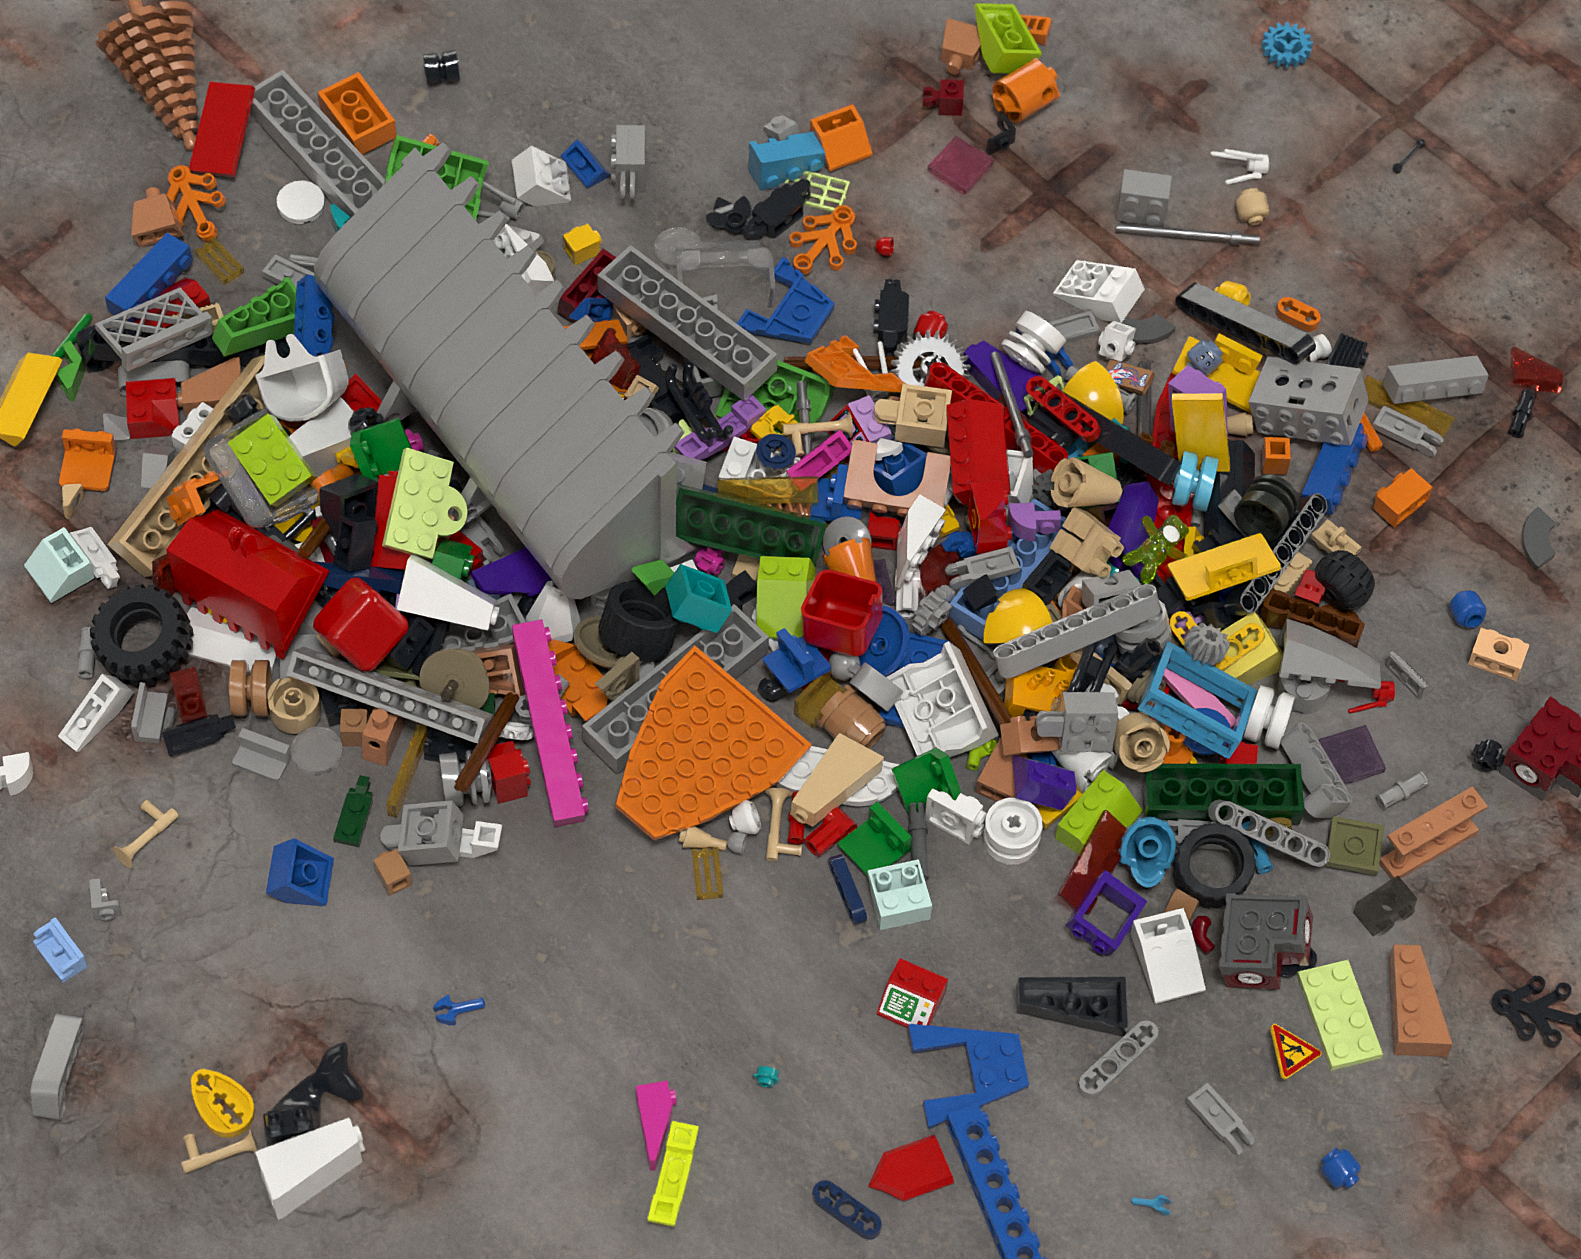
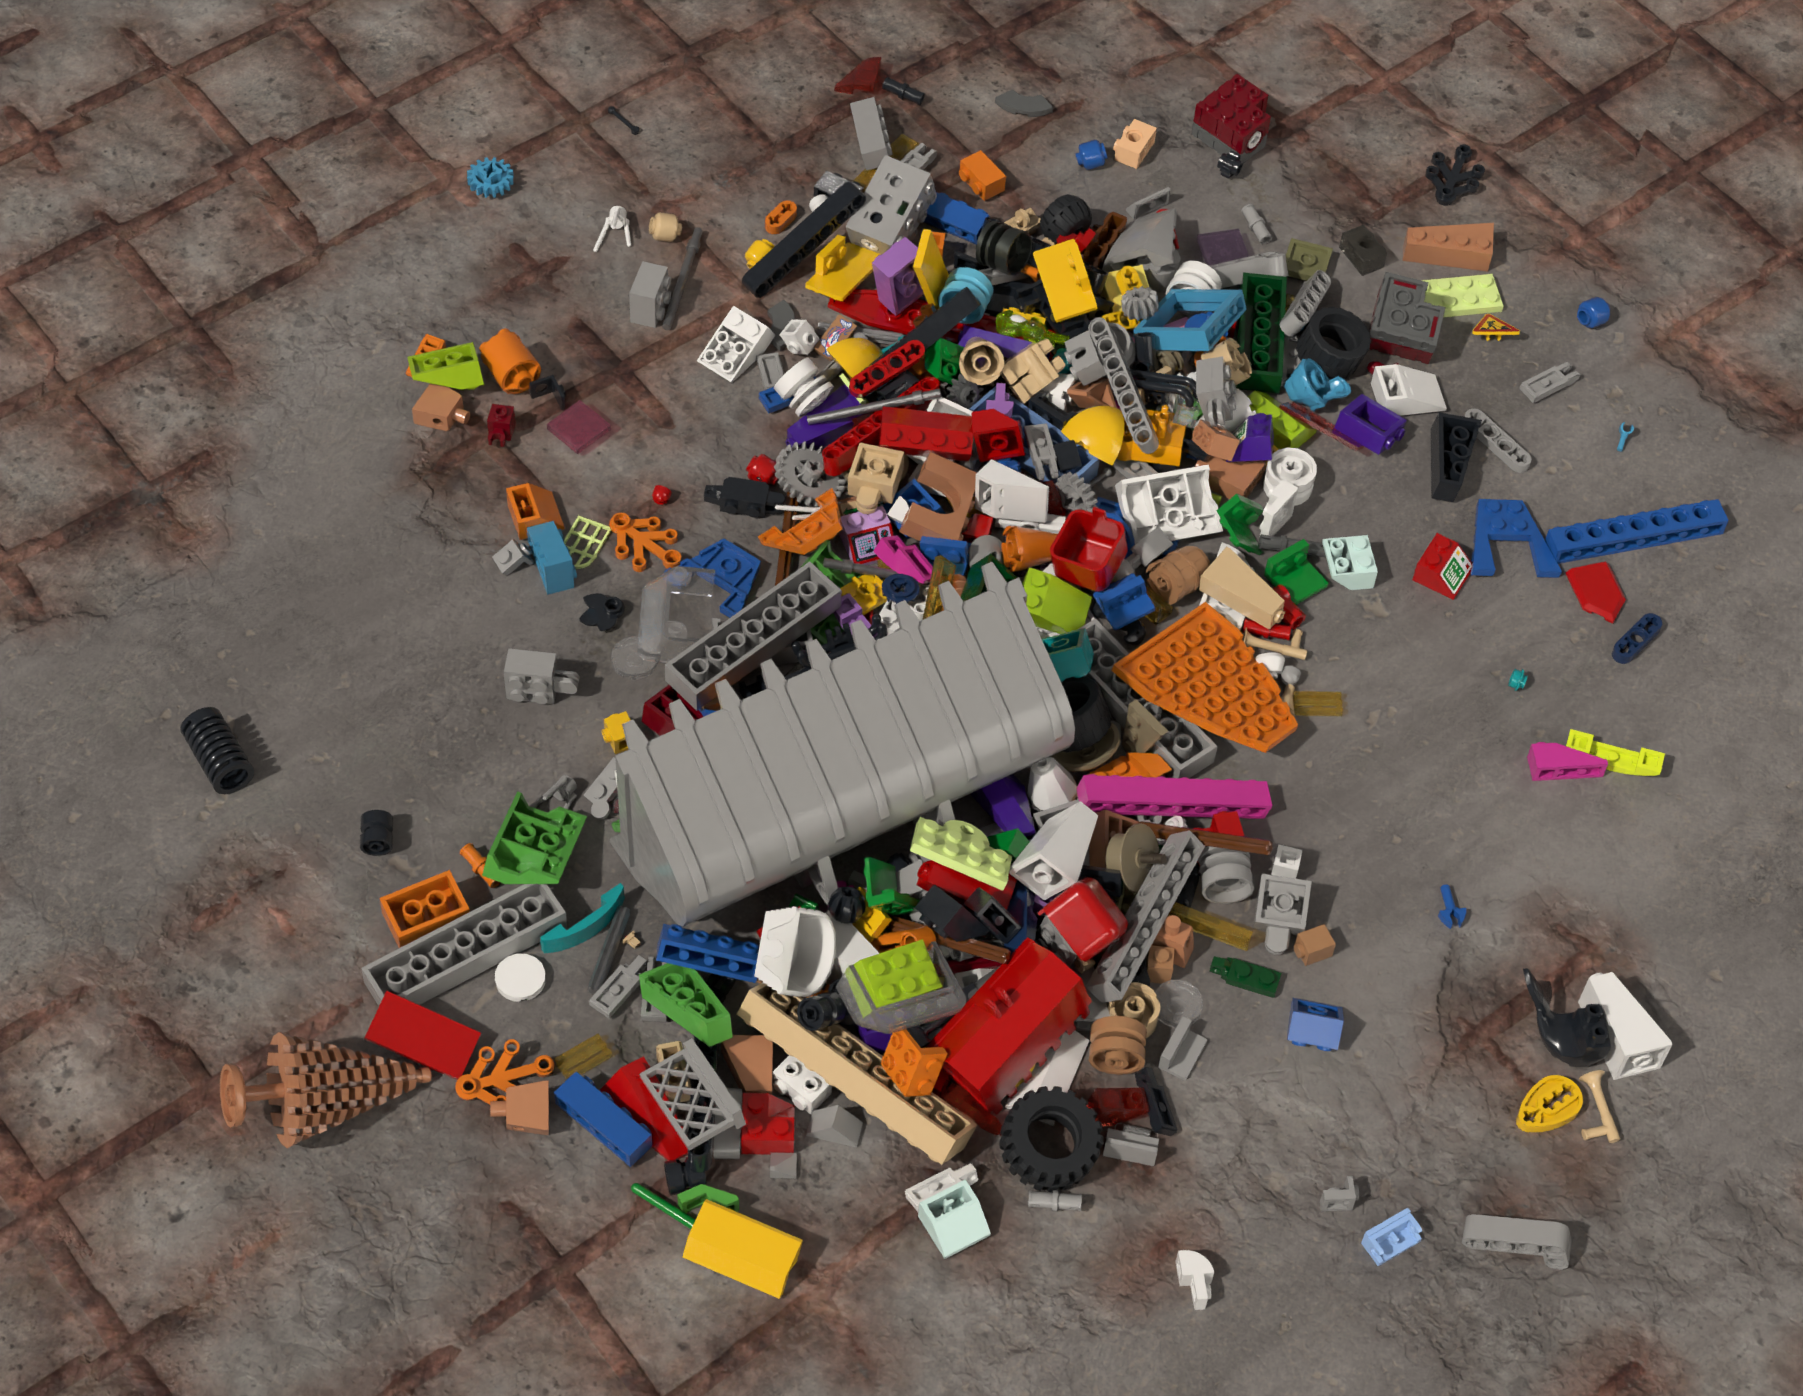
camera: 85 degrees left, 5 degrees down
(72, 497) = (871, 1208): tan slope -> none
(88, 459) = (825, 1191): orange bracket -> none
(96, 711) = (1127, 1193): white slope -> none
(126, 854) = (1288, 1171): tan piece -> none
(540, 178) = (534, 759): white slope -> none
(585, 164) = (518, 725): blue slope -> none
(778, 211) = (608, 569): black hinge -> none
(797, 429) = (872, 535): tan piece -> none
(847, 889) = (1339, 601): dark blue beam -> none
(979, 676) = (1182, 462): reddish brown axle -> none
(1182, 900) = (1360, 378): medium nougat slope -> none
(1205, 357) = (838, 270): sand blue head -> none
(1433, 834) = (1299, 209): nougat fence -> none

